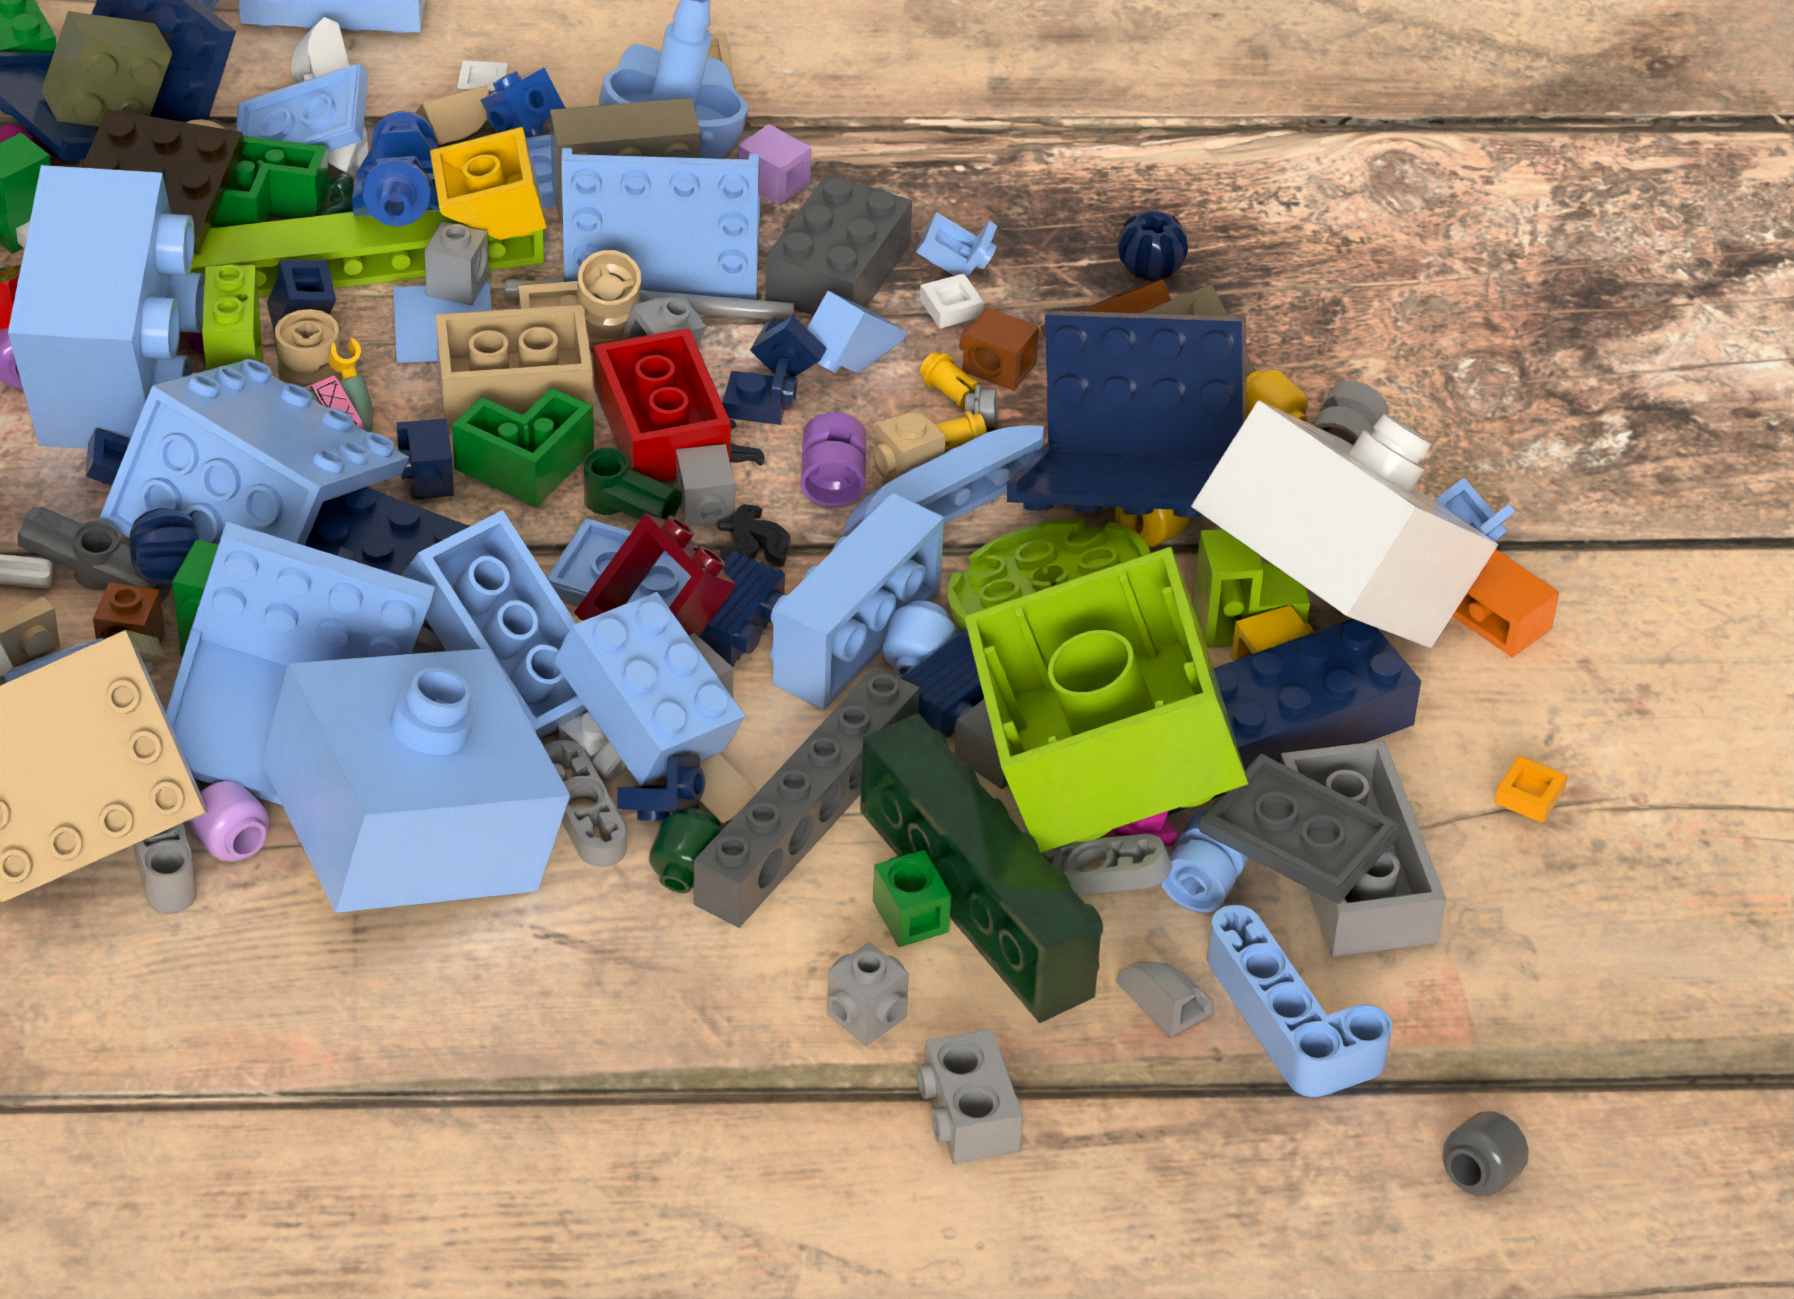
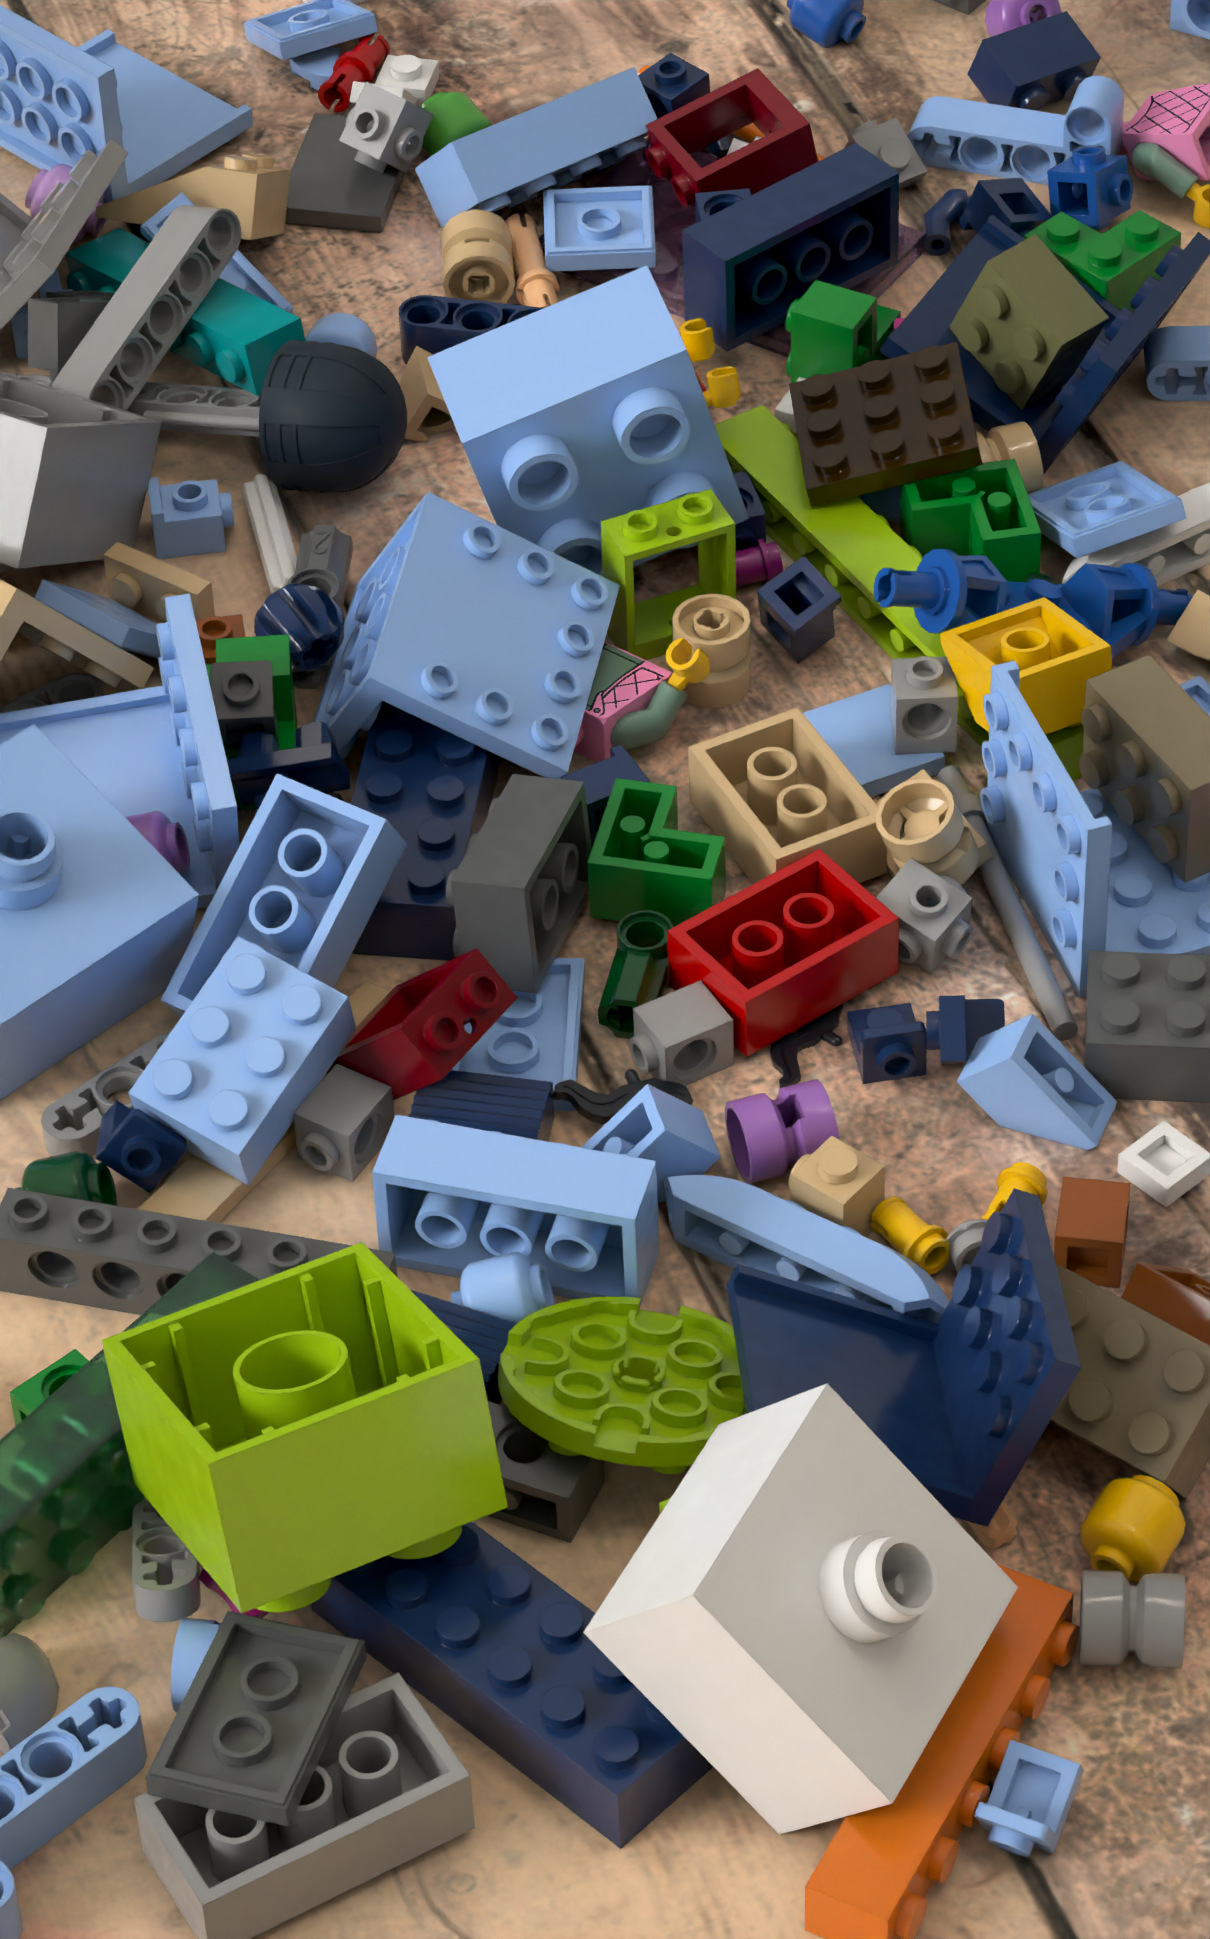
camera: 75 degrees right, 0 degrees up
(546, 497) = (523, 879): none -> dark grey brick
(813, 530) = (660, 1130): none -> light blue slope

